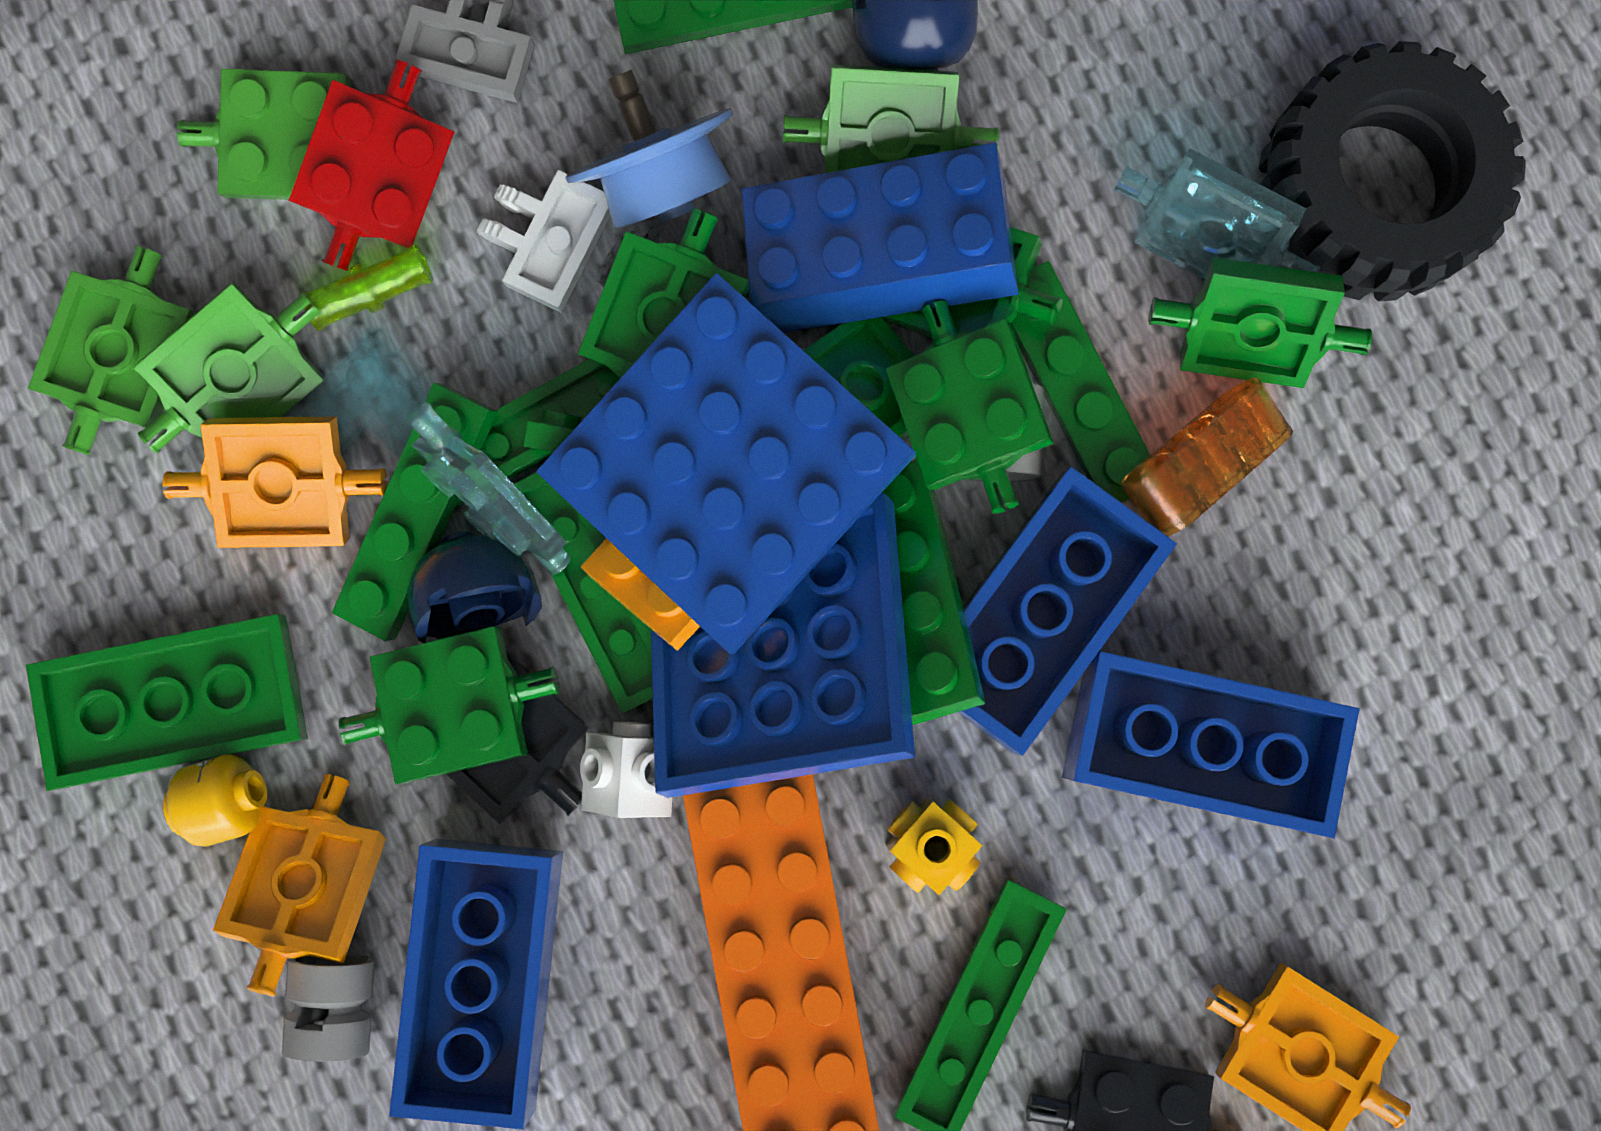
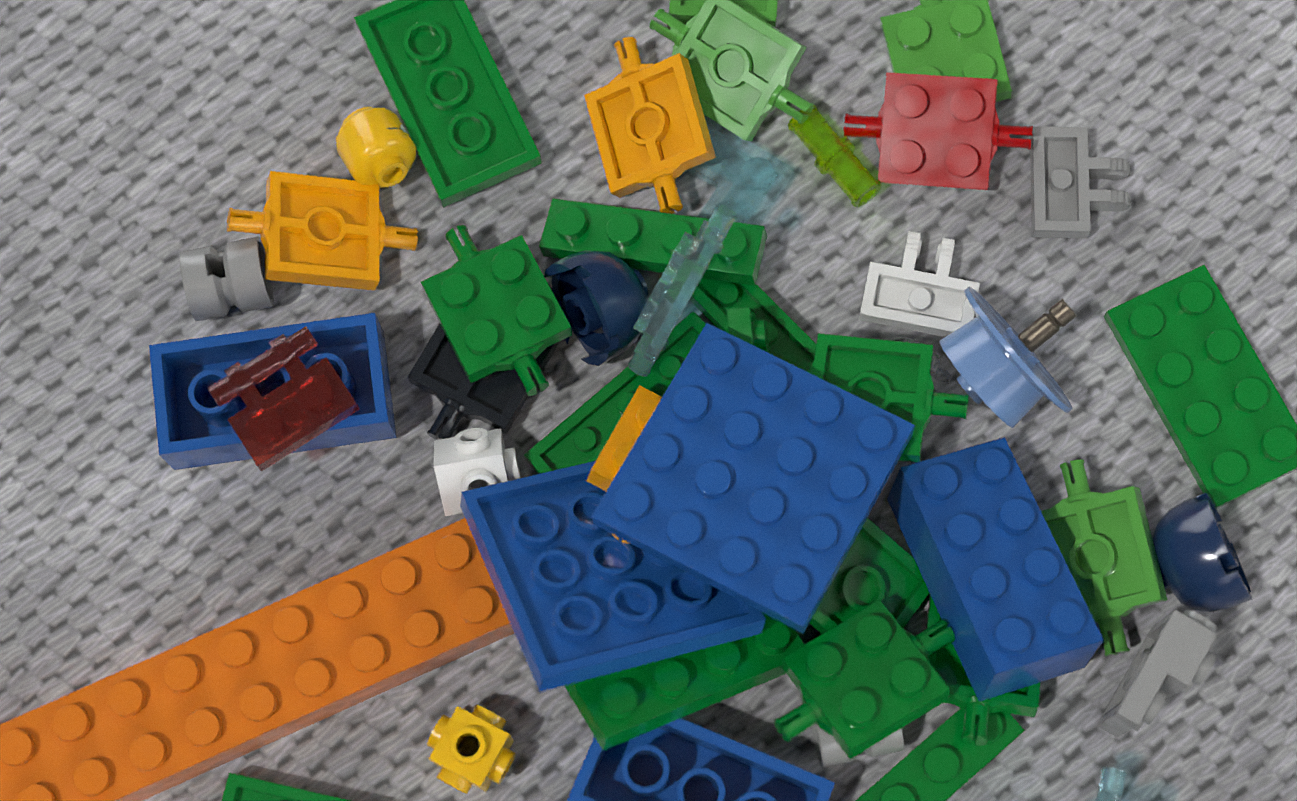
camera: 80 degrees right, 10 degrees down
(515, 967) = (292, 412): none -> clear red plate
(1019, 96) = (1167, 662): none -> light grey plate

